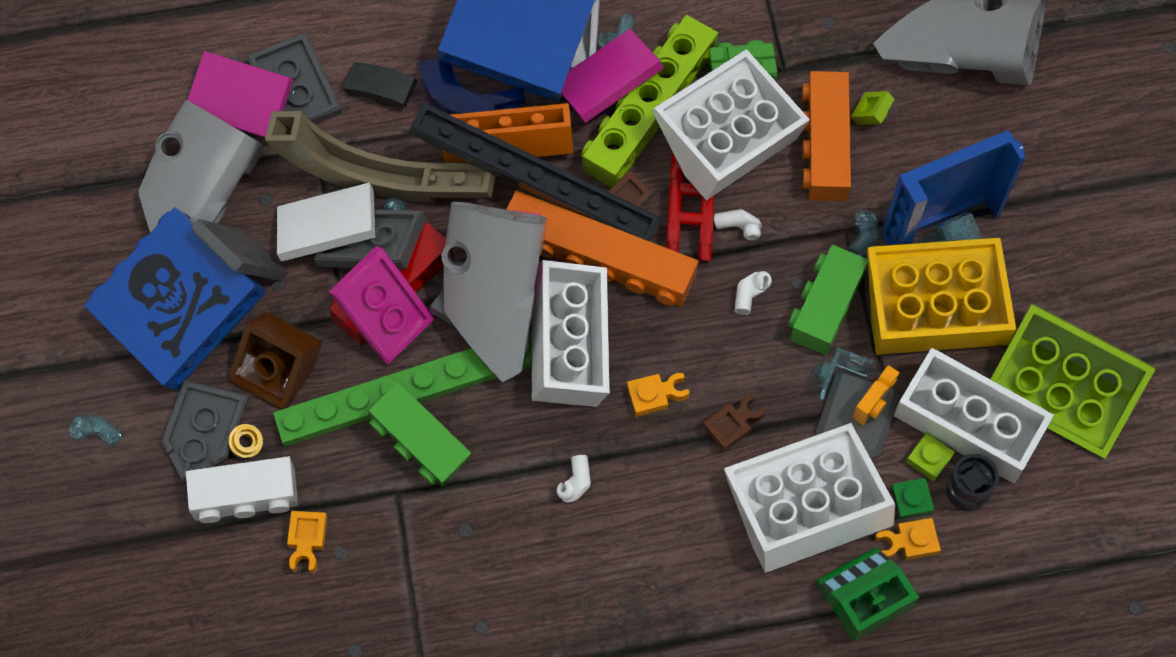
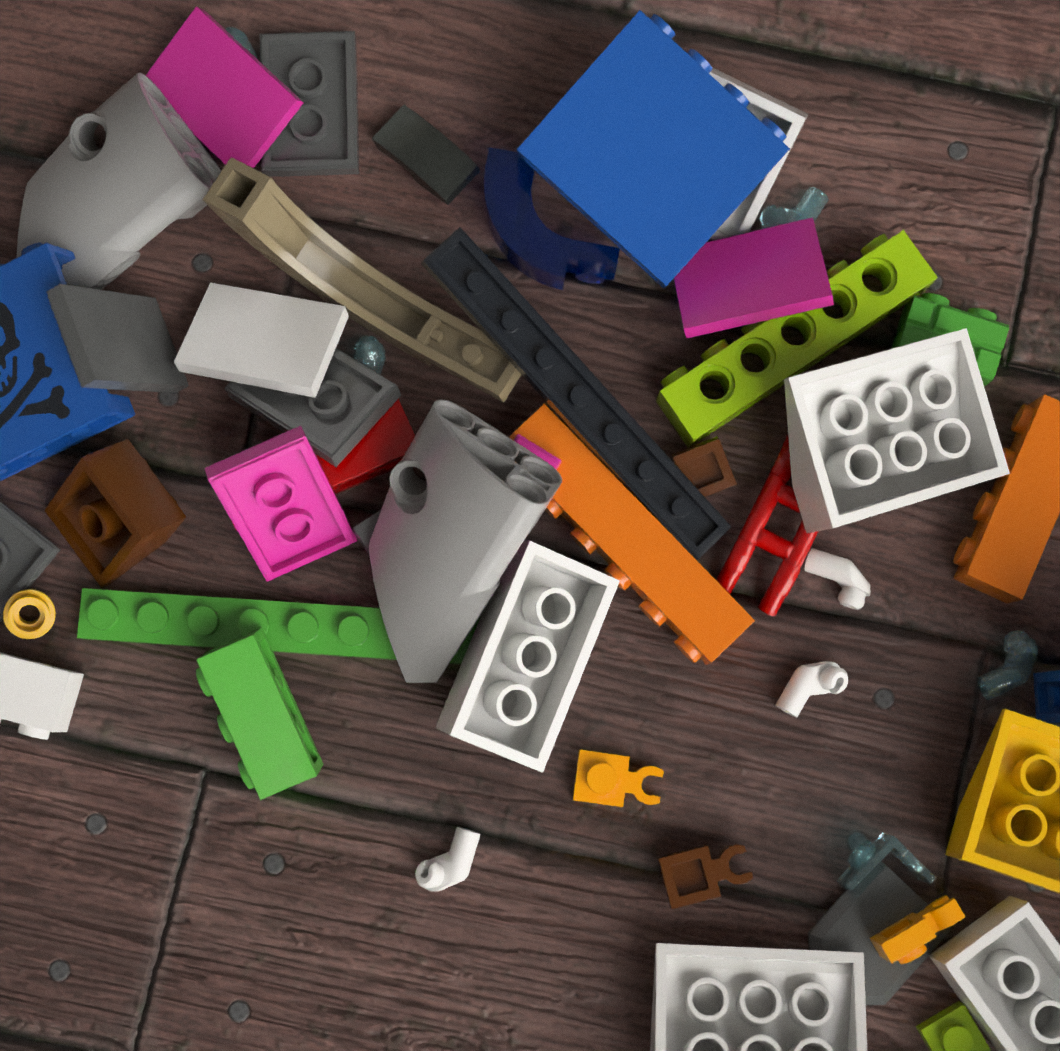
camera: 20 degrees right, 15 degrees up
(306, 534) = (56, 786): light orange plate -> none
(532, 129) = (590, 313): orange brick -> none
(827, 299) = (914, 748): bright green brick -> none

